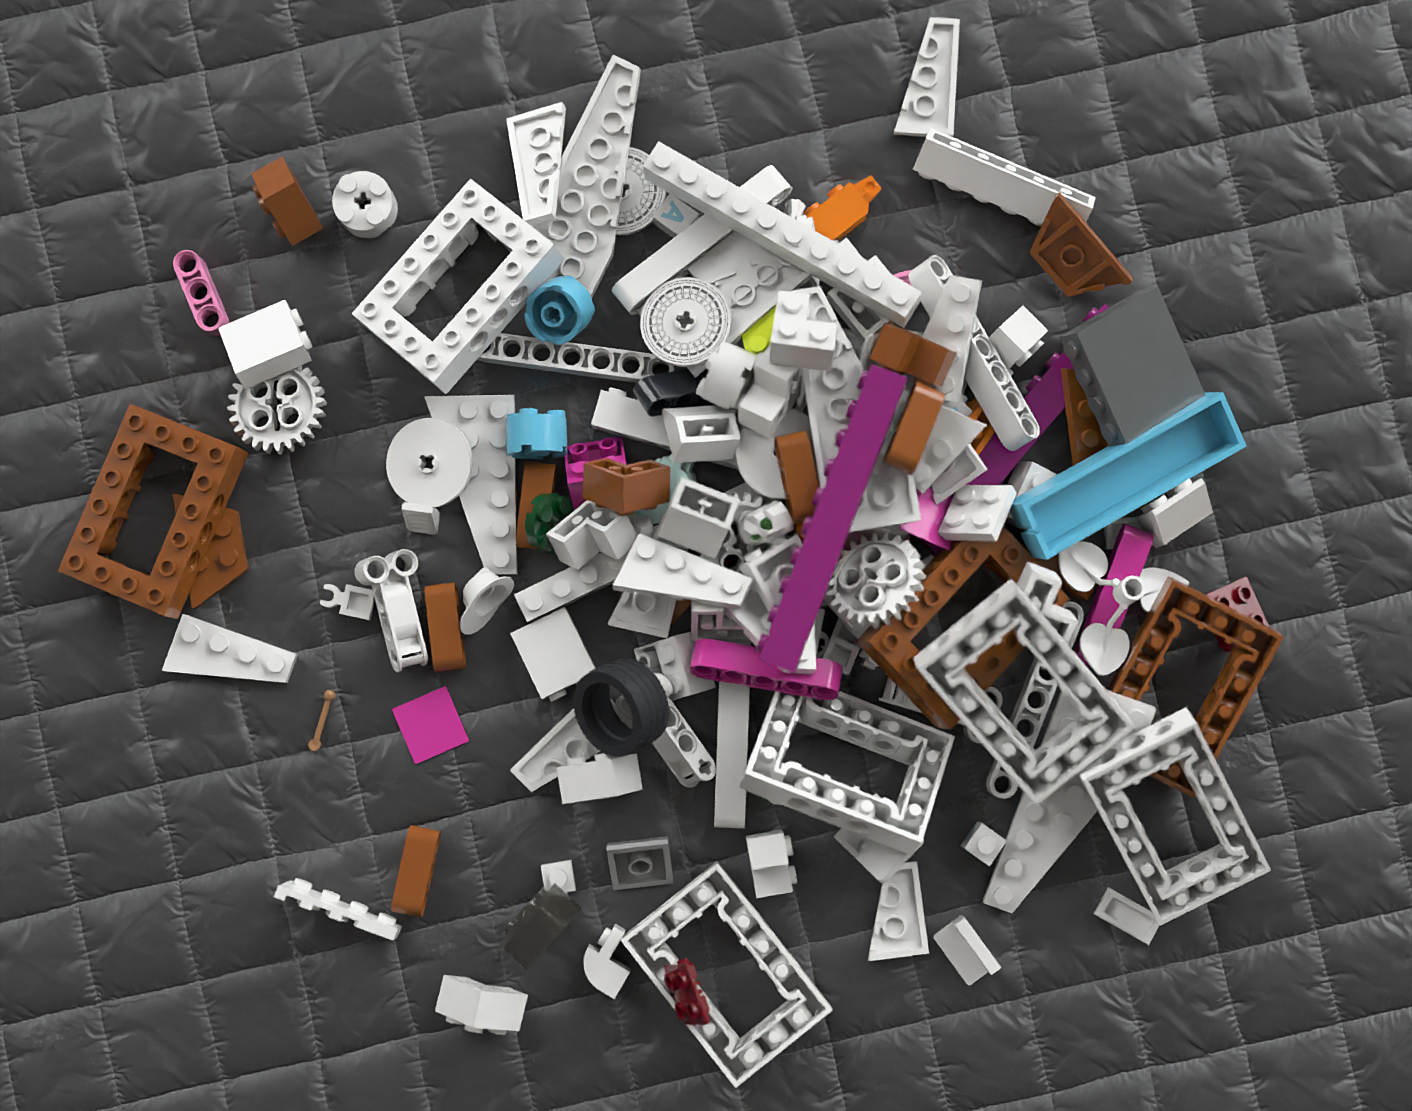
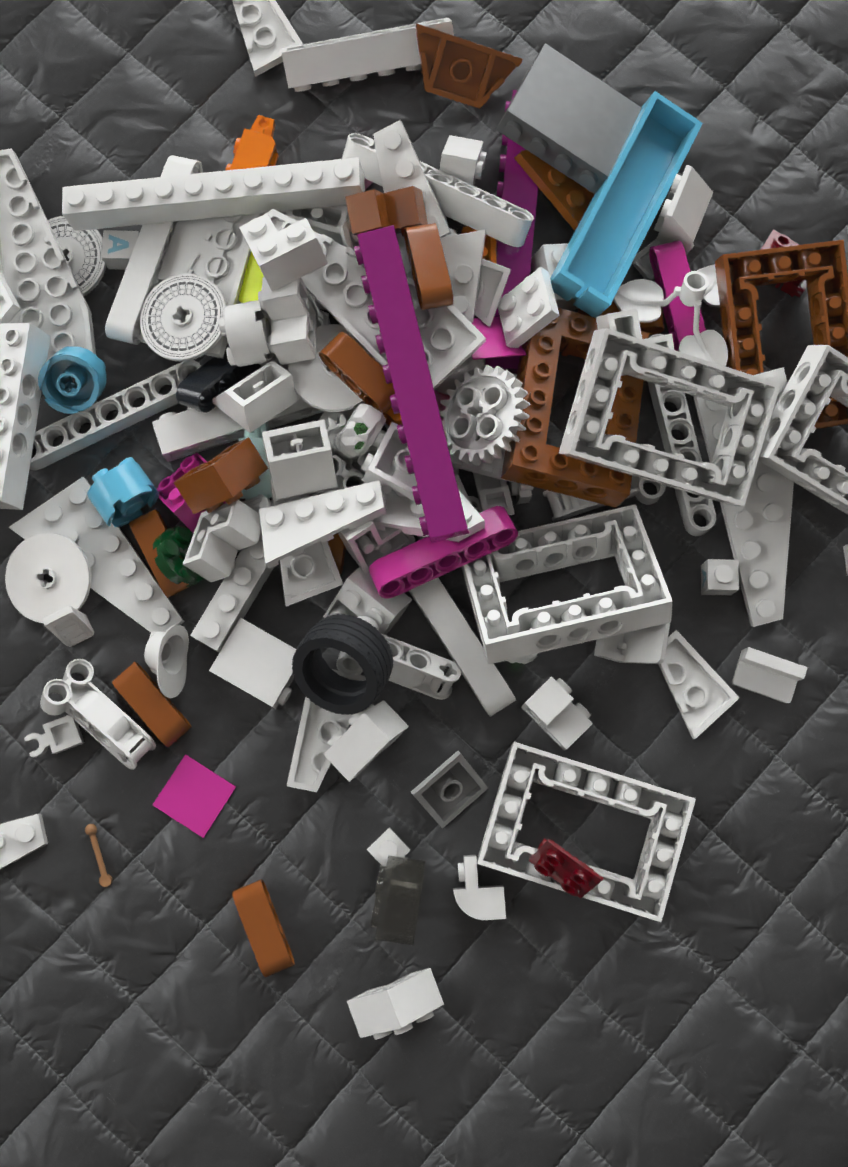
camera: 30 degrees left, 5 degrees down
(381, 925) = (265, 995): white wing -> none

